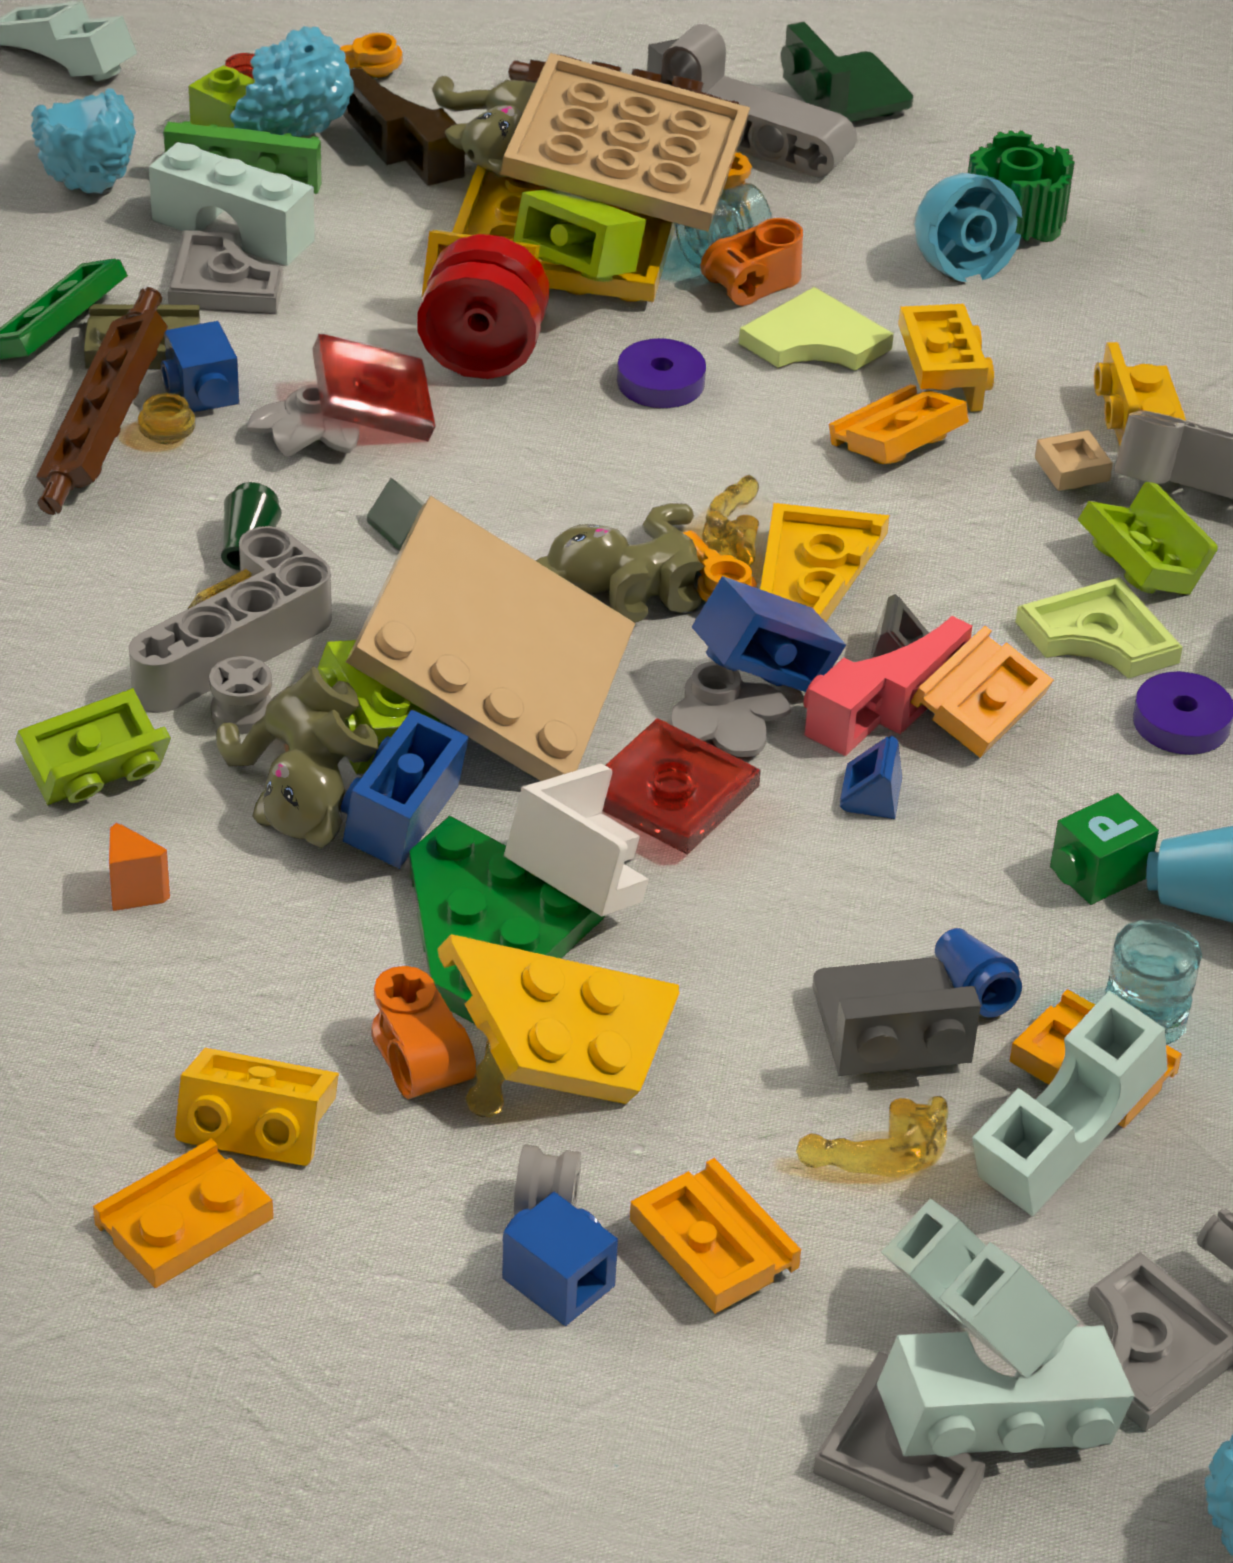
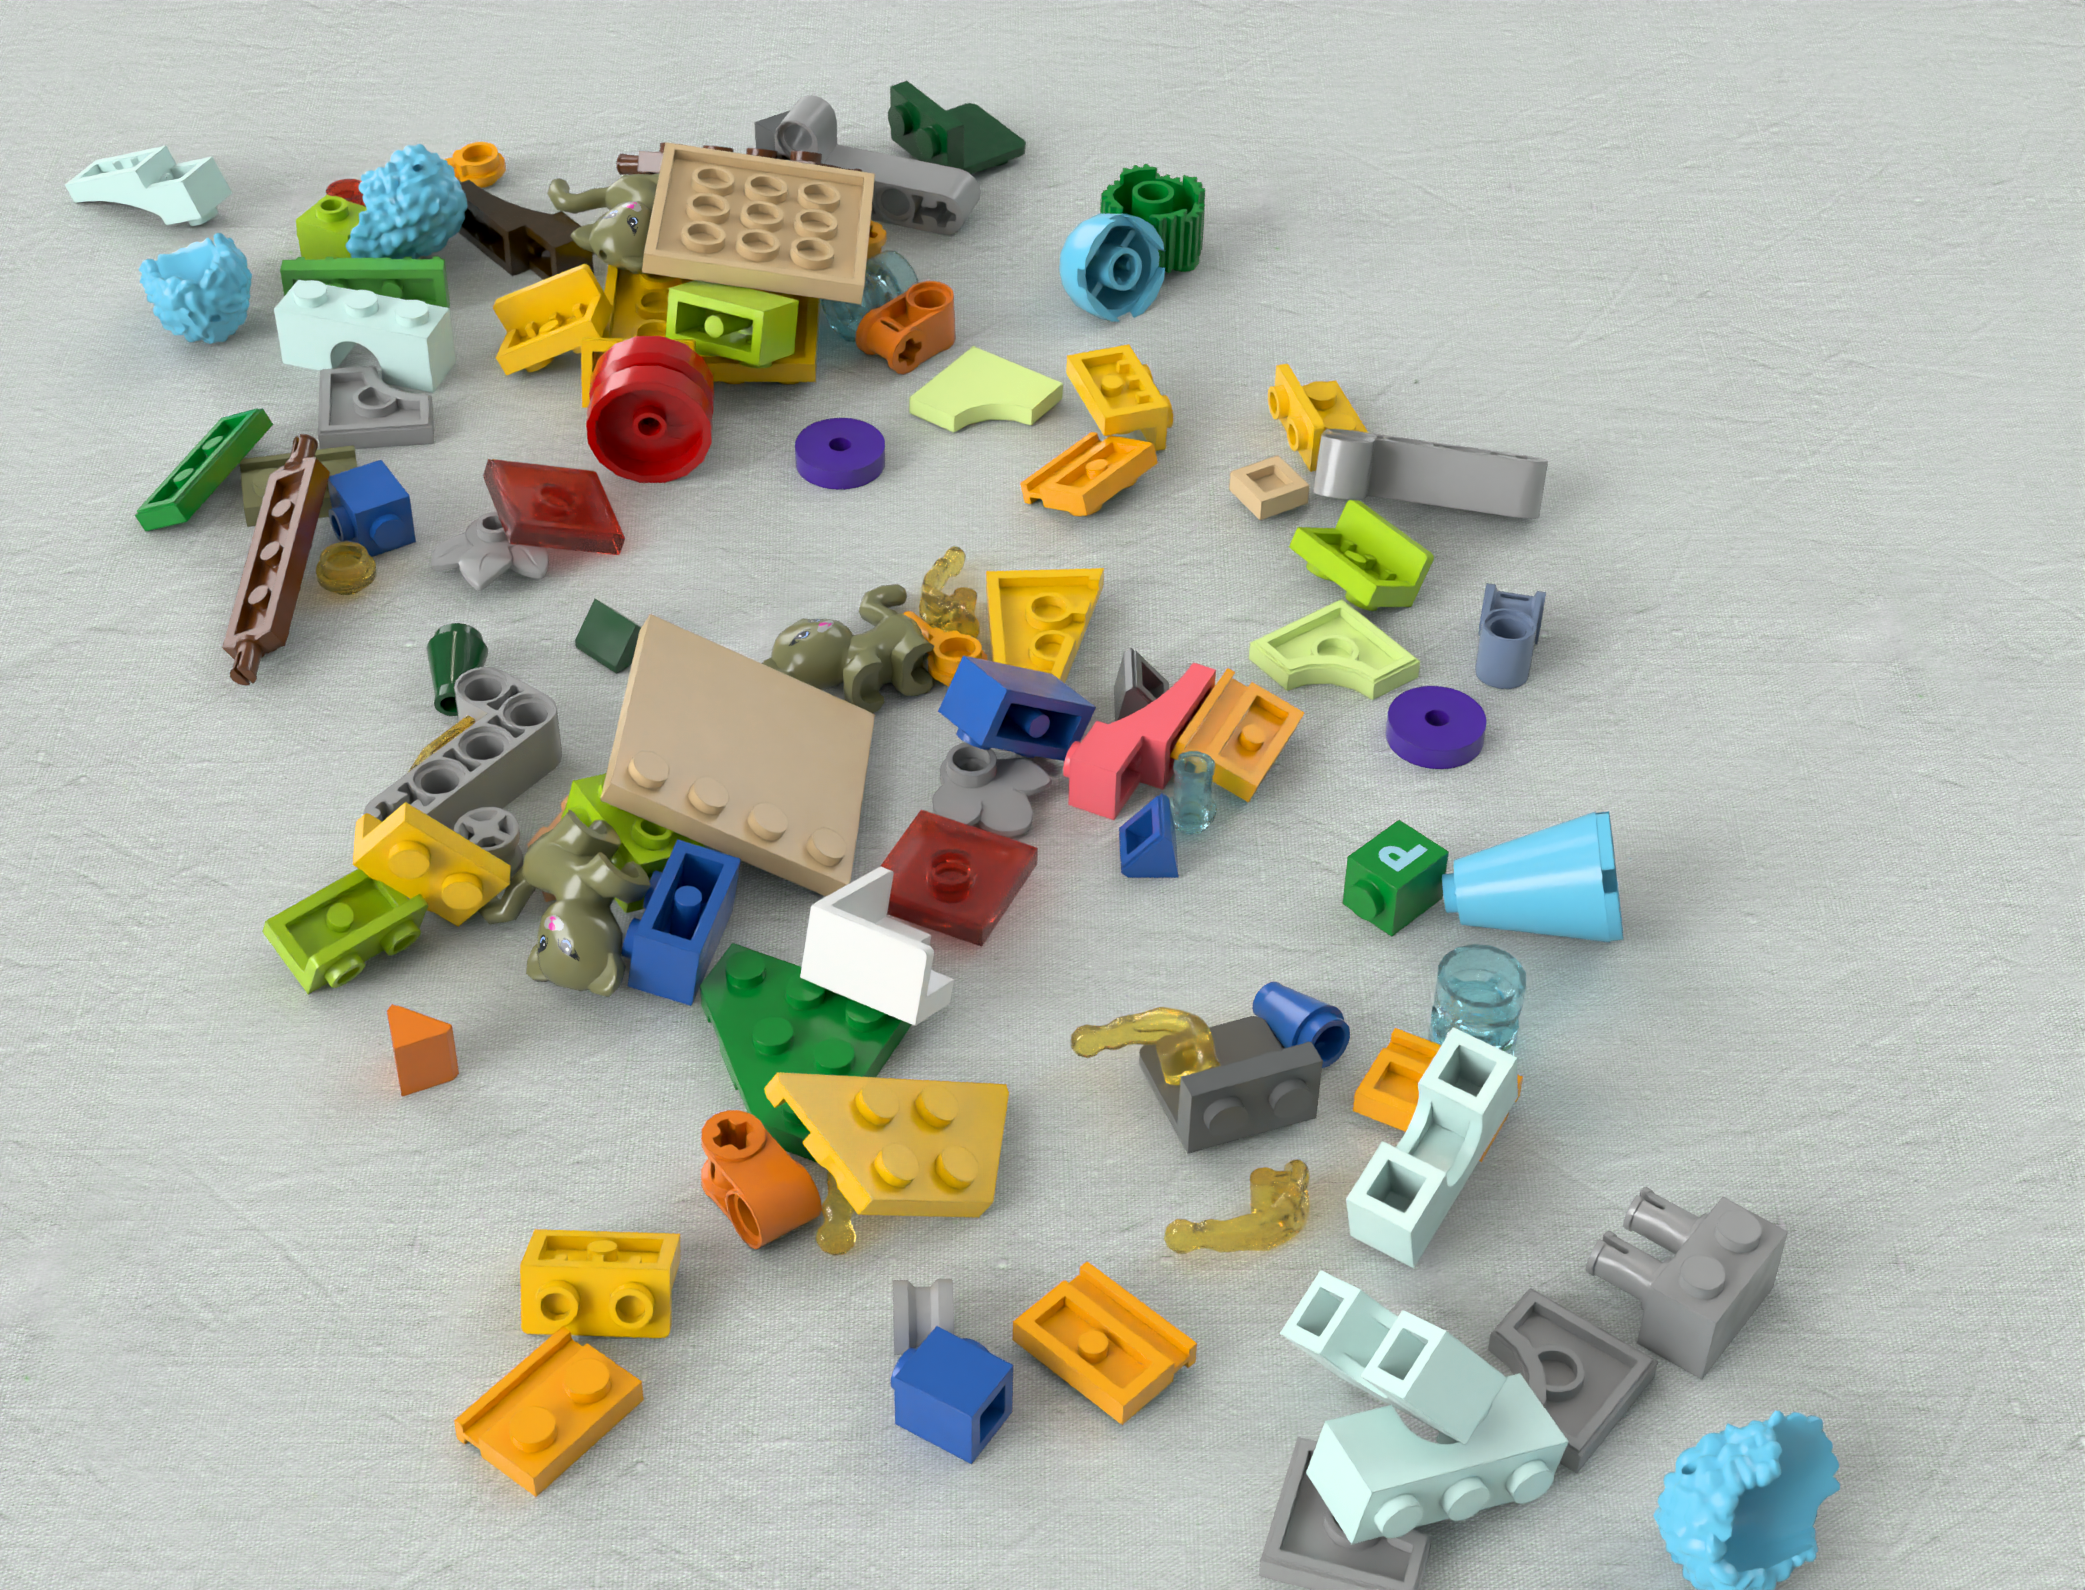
camera: 10 degrees left, 0 degrees up
(177, 694) = (430, 860): none -> yellow bracket
(407, 207) = (550, 319): none -> yellow bracket
(849, 963) = (1180, 1037): none -> clear yellow piece
(922, 750) = (1191, 799): none -> clear light blue pin

